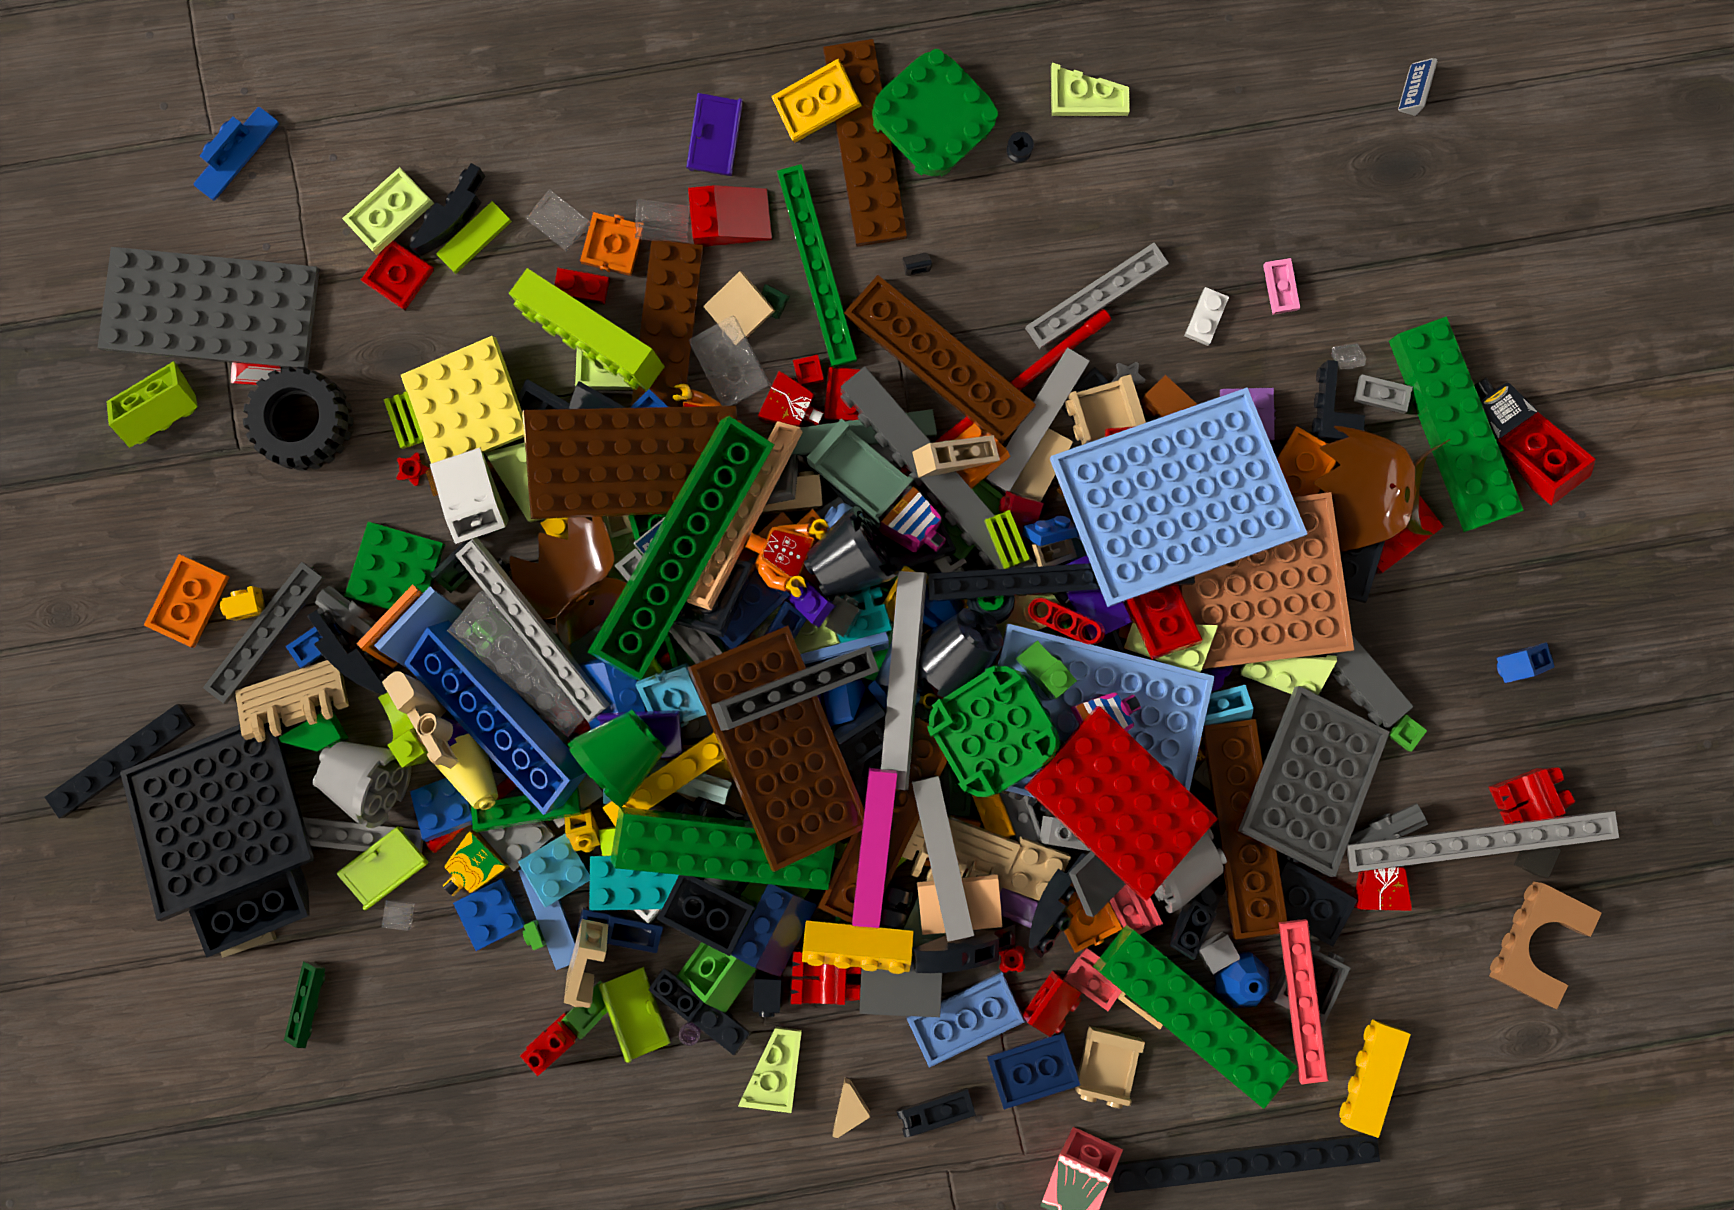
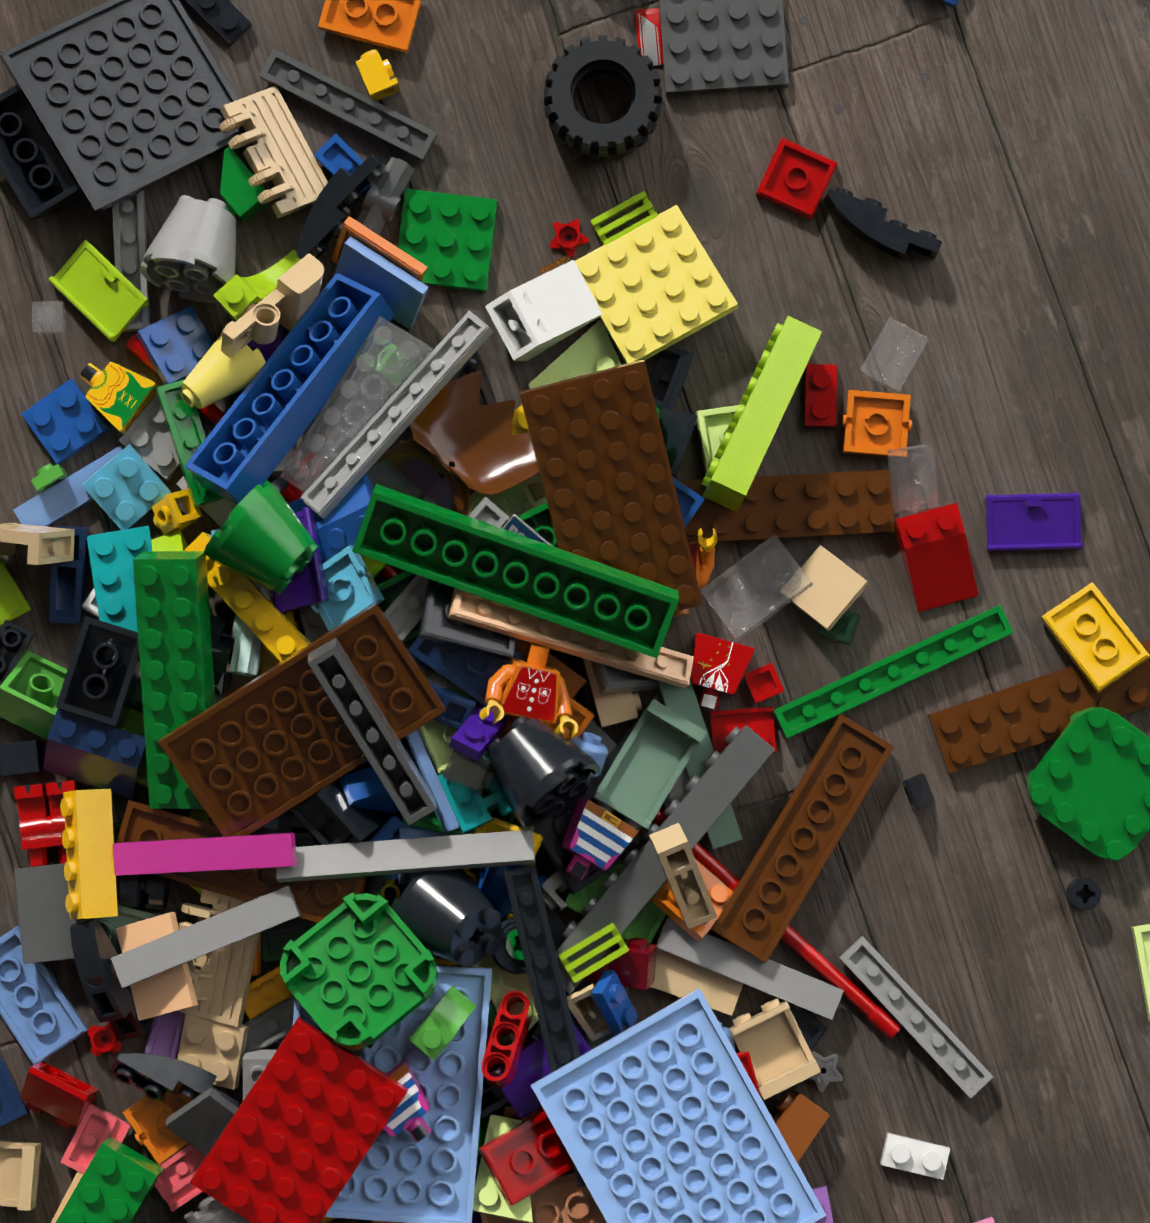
camera: 90 degrees right, 0 degrees up
(388, 211) = (870, 154): yellowish green tile -> none
(451, 571) = (452, 306): black plate -> none
(473, 237) = (856, 259): lime tile -> none

